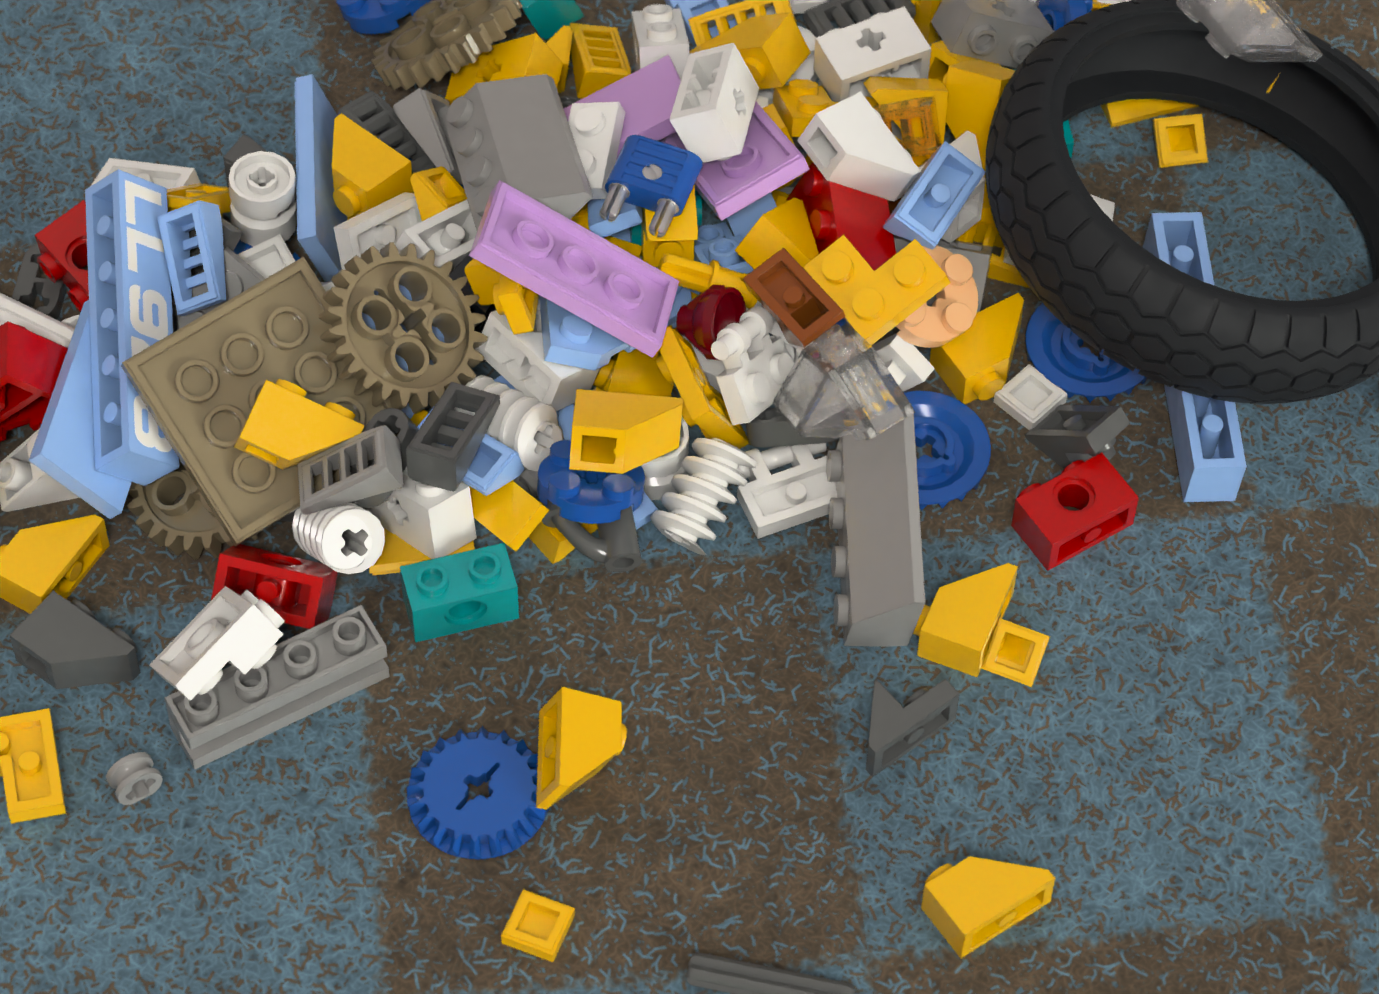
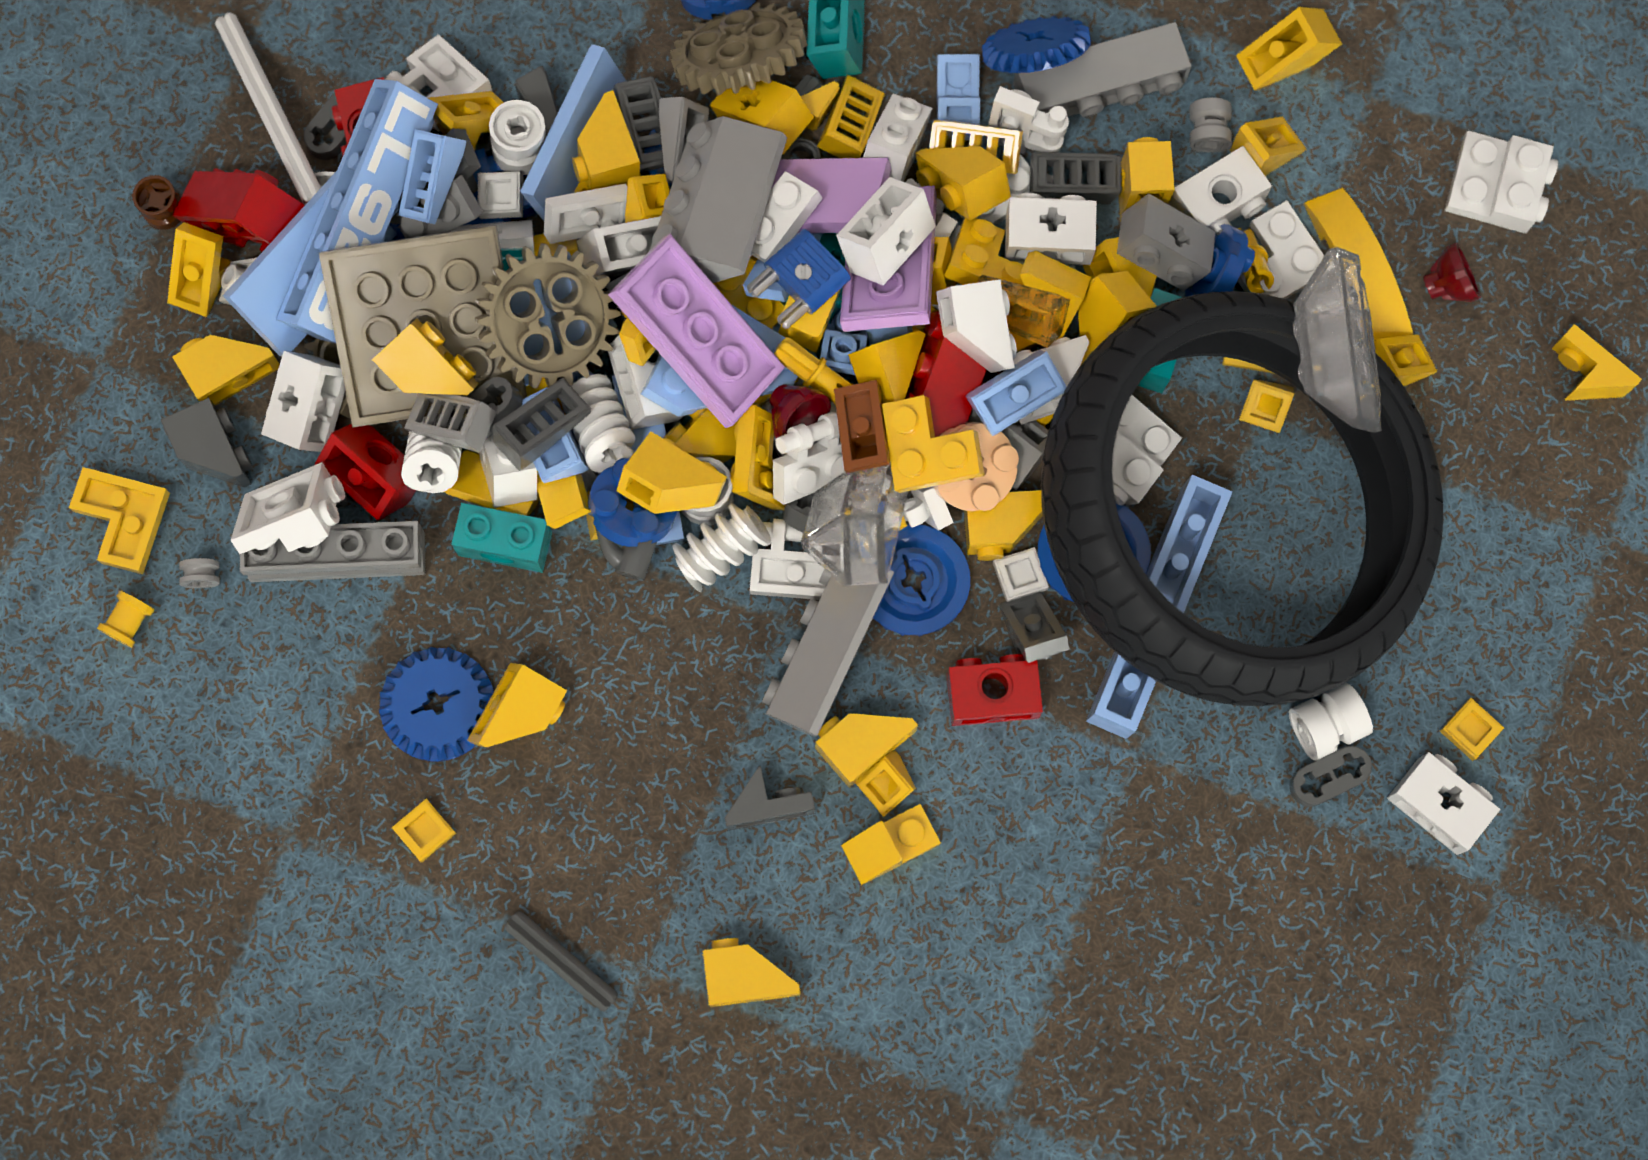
camera: 25 degrees right, 20 degrees up
(74, 861) = (125, 619): none -> yellow bush
(165, 548) = (304, 401): none -> white brick
(1054, 706) = (890, 844): none -> yellow slope

